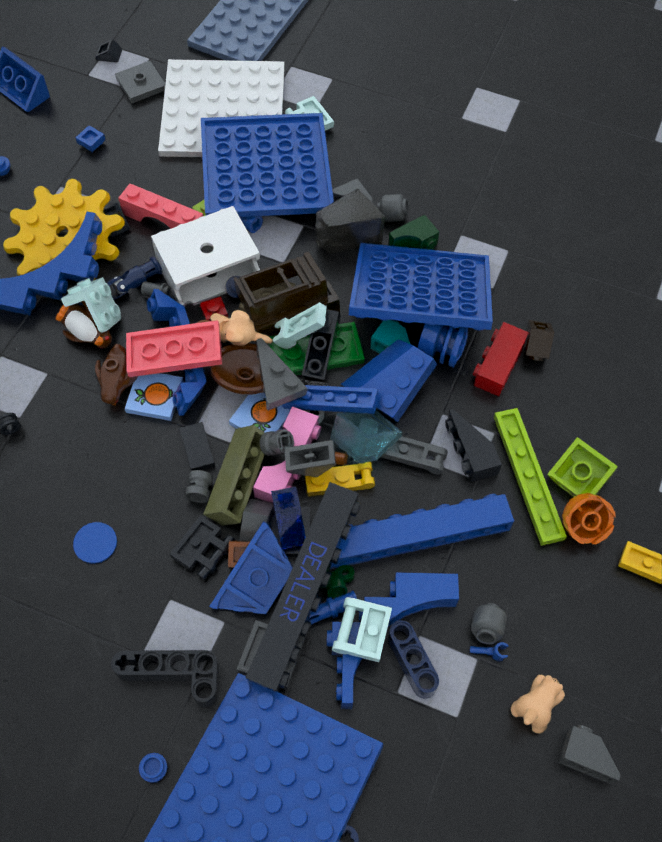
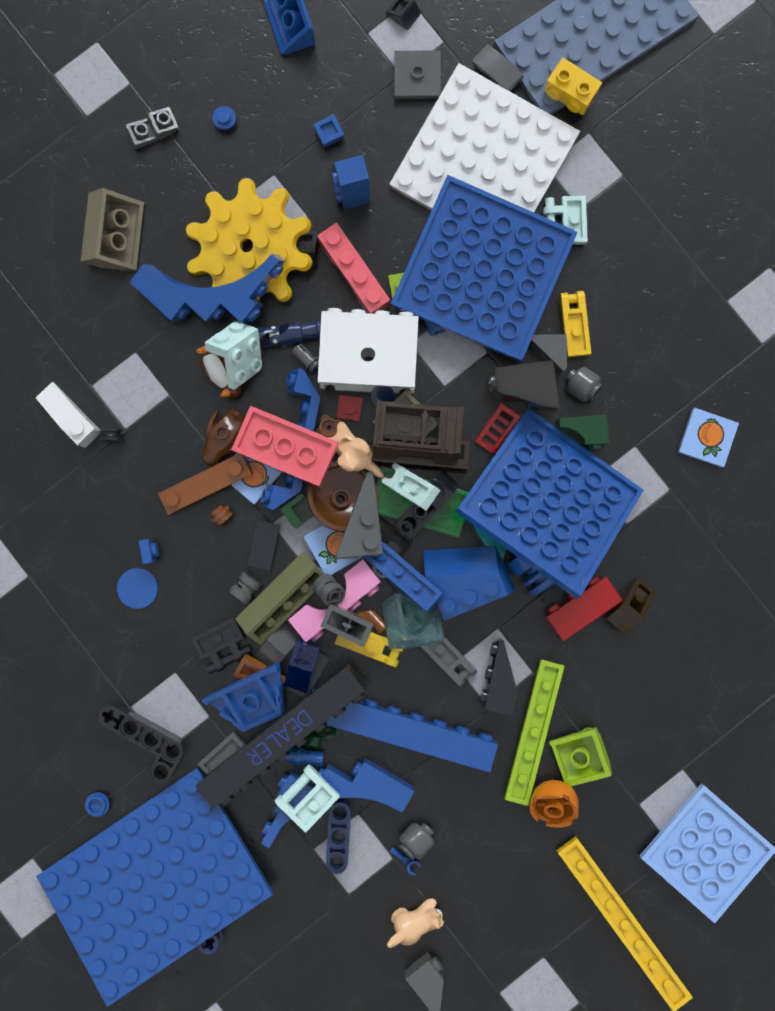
camera: 30 degrees right, 25 degrees up
(91, 500) = (149, 551): none -> blue plate
(116, 420) = (205, 483): none -> dark orange plate
(126, 150) = (351, 182): none -> blue wedge
(143, 438) = (220, 514): none -> dark orange plate
(199, 51) = (497, 68): none -> dark grey slope
(212, 404) = (297, 511): none -> dark green panel
(261, 36) = (572, 86): none -> yellow brick
(345, 252) = (485, 431): none -> red slope
(359, 170) = (575, 324): none -> yellow plate
(511, 202) = (708, 437): none -> light blue tile

